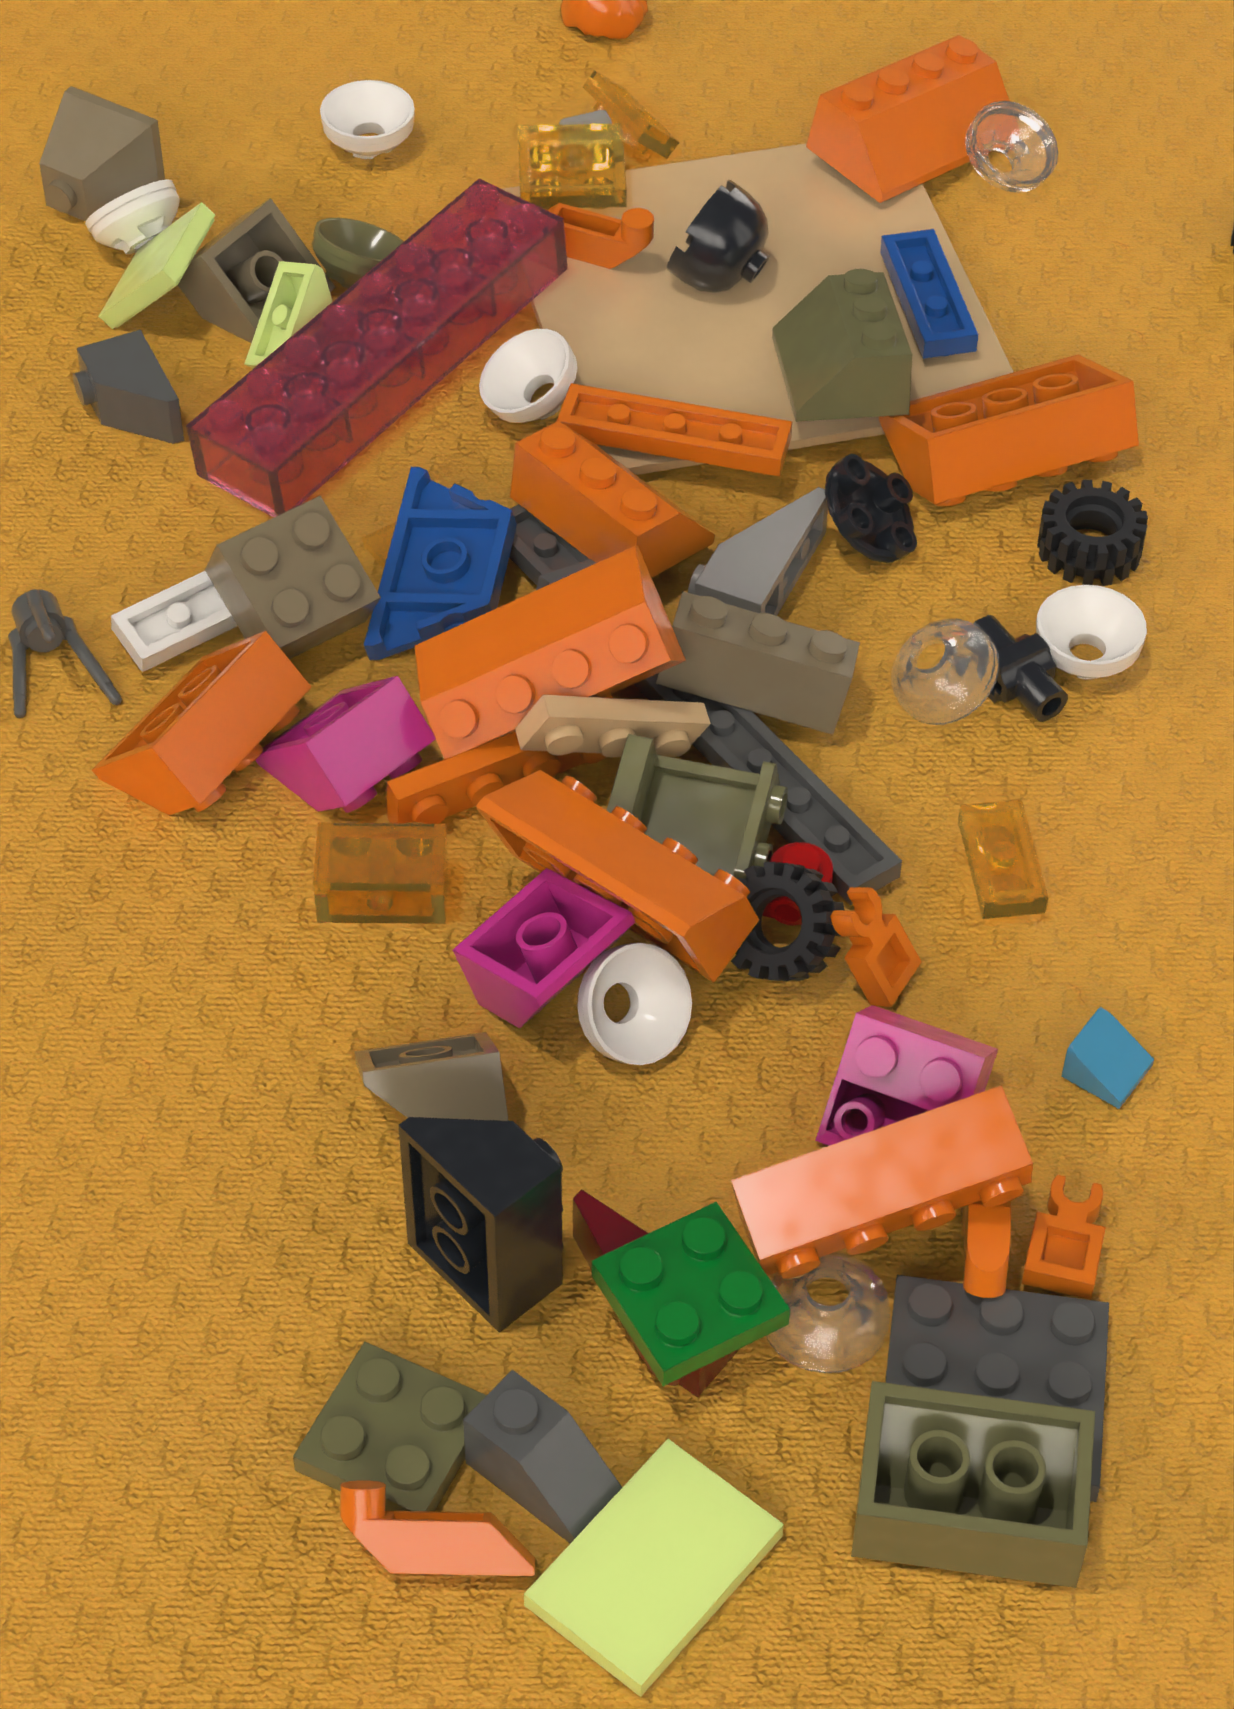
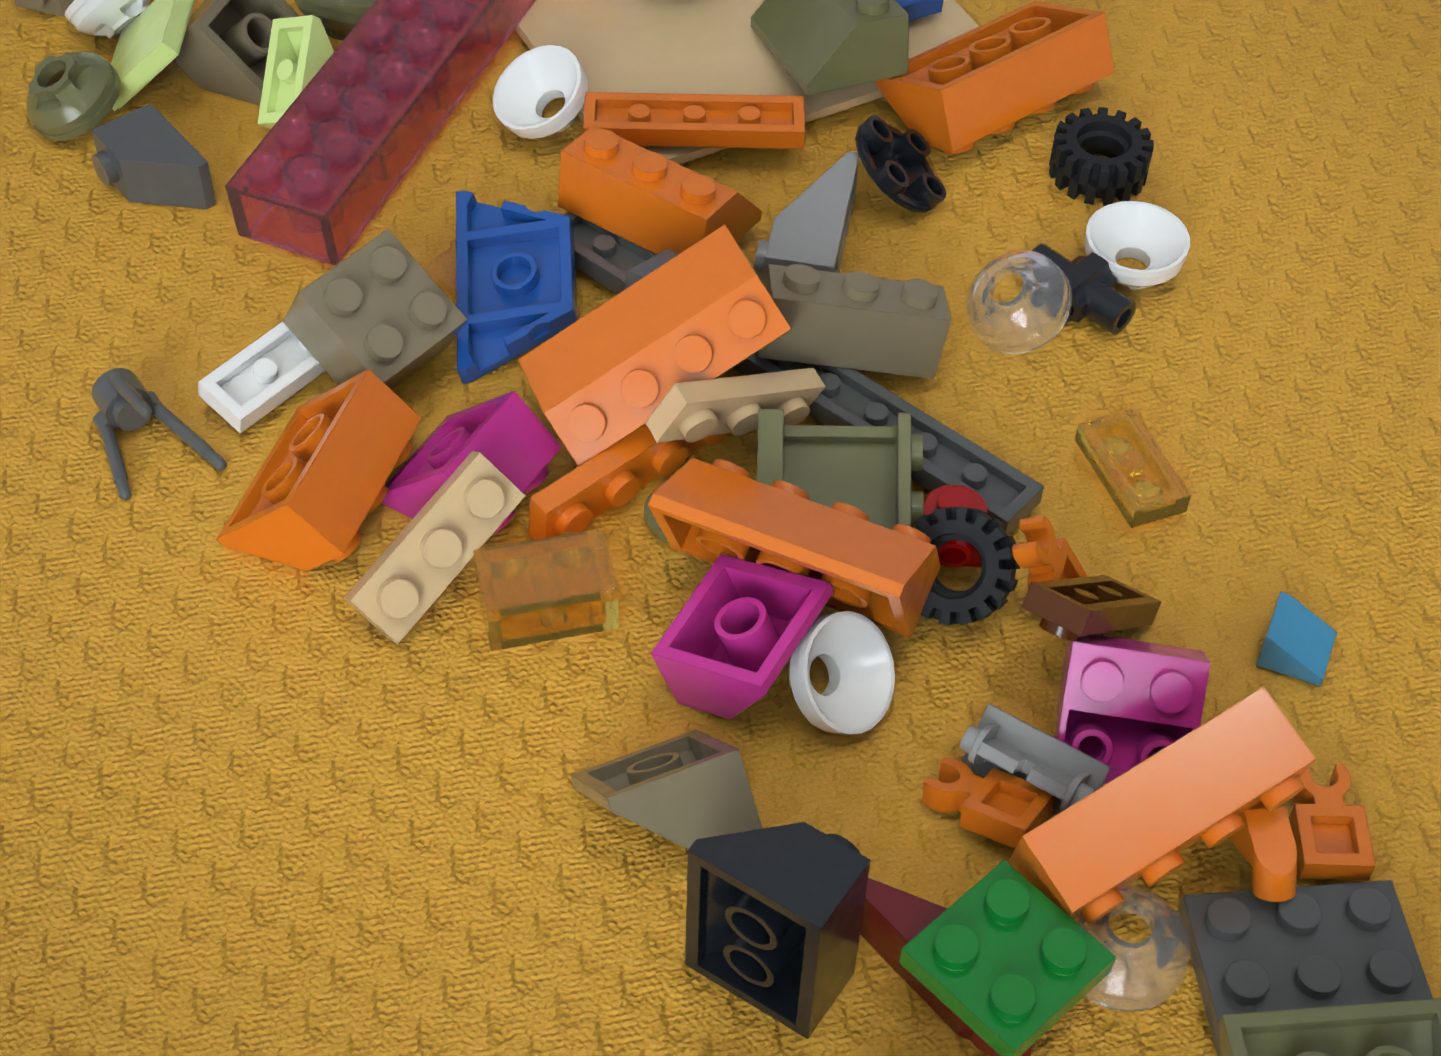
camera: 15 degrees left, 0 degrees up
(70, 307) = (71, 94): none -> olive piece
(284, 812) = (434, 547): none -> tan plate
(731, 1149) = (991, 806): none -> orange plate
(783, 1113) = (1033, 755): none -> light grey hinge
(893, 984) = (1089, 606): none -> reddish brown plate

